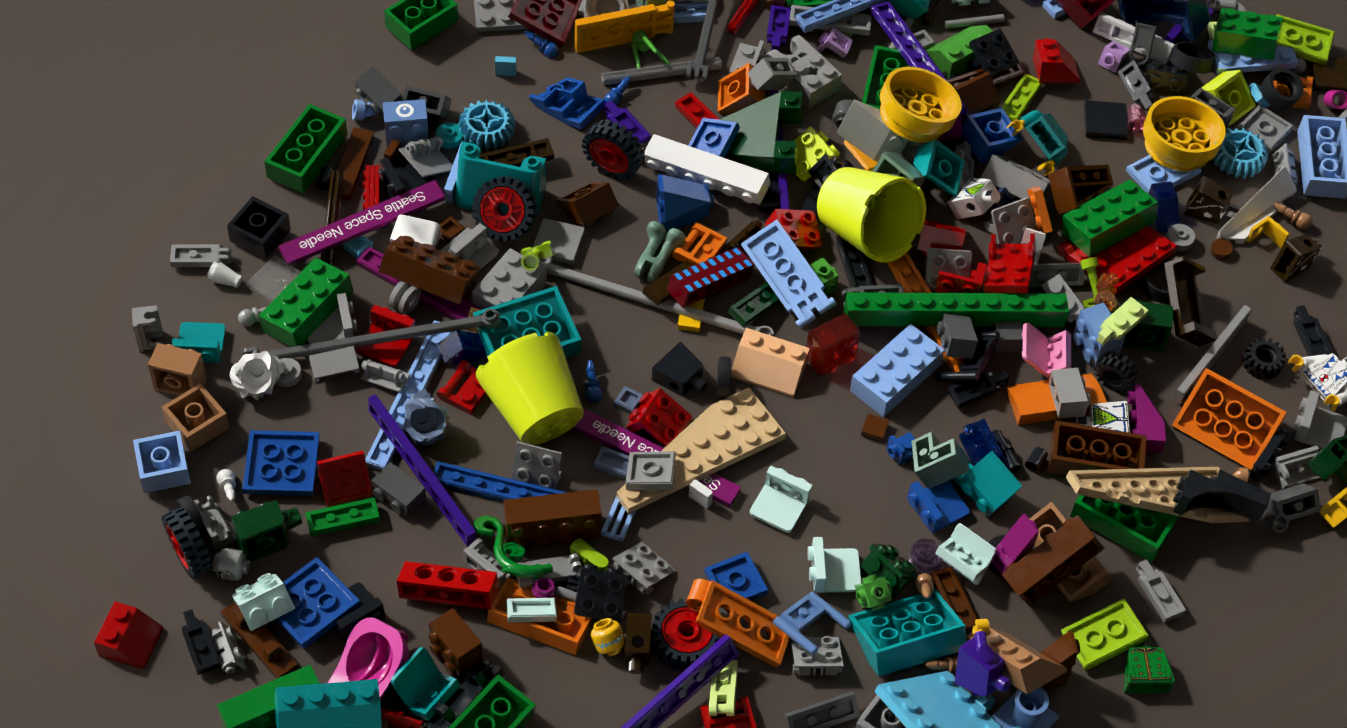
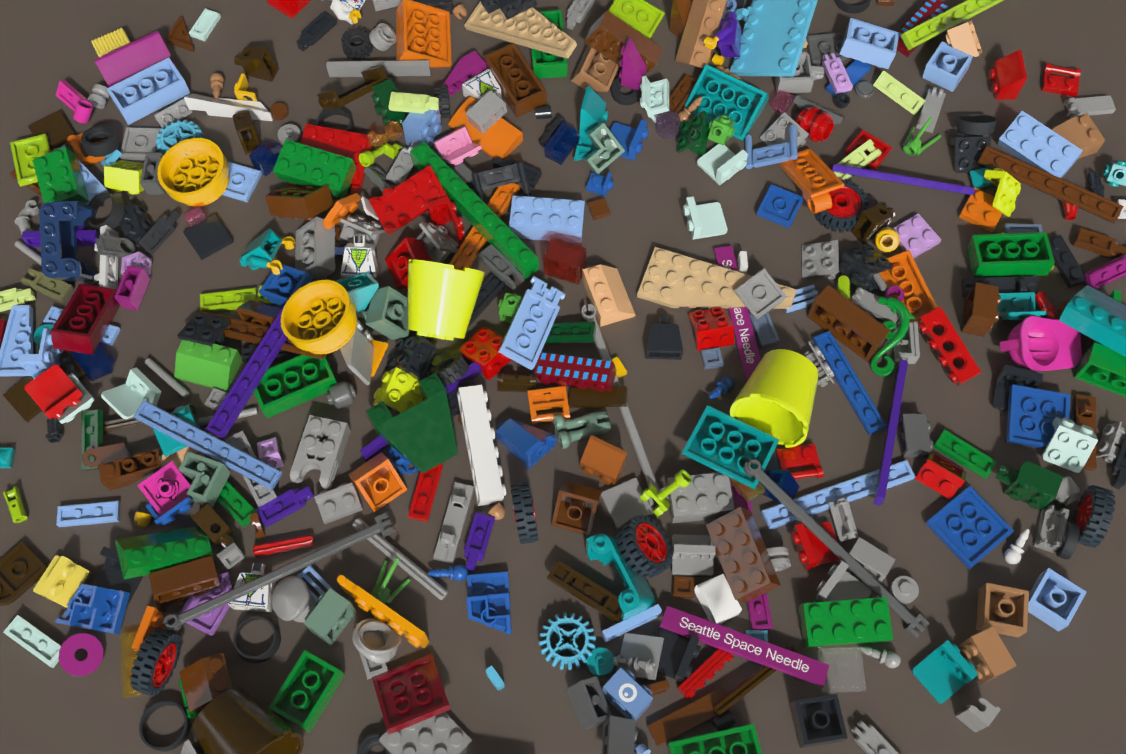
camera: 125 degrees left, 10 degrees up
(224, 275) = (876, 712): white cone -> none
(256, 374) = (935, 597): white hair -> none
(425, 419) = (856, 454): sand blue hair -> none
(531, 610) = (916, 289): light aqua tile -> none
(549, 49) = (444, 664): blue bar -> none
(590, 678) = (916, 236): none -> lavender plate
(608, 244) = (603, 461): none -> dark orange slope
(655, 118) = (453, 523): none -> light grey hinge
(714, 136) = (450, 457): plate -> none
(724, 376) = (648, 307): black tyre -> none
(772, 74) = (353, 456): light grey brick -> none
(795, 188) = (451, 369): none -> black tyre
(801, 687) = (816, 125): none -> red piece
(863, 687) = (782, 102): none -> clear pink brick
(957, 335) = (497, 191): dark grey brick -> none
(1054, 63) = (179, 294): red slope -> none
(1085, 35) = (132, 288): none -> magenta brick
(1259, 370) = (382, 37): none -> light grey wheel

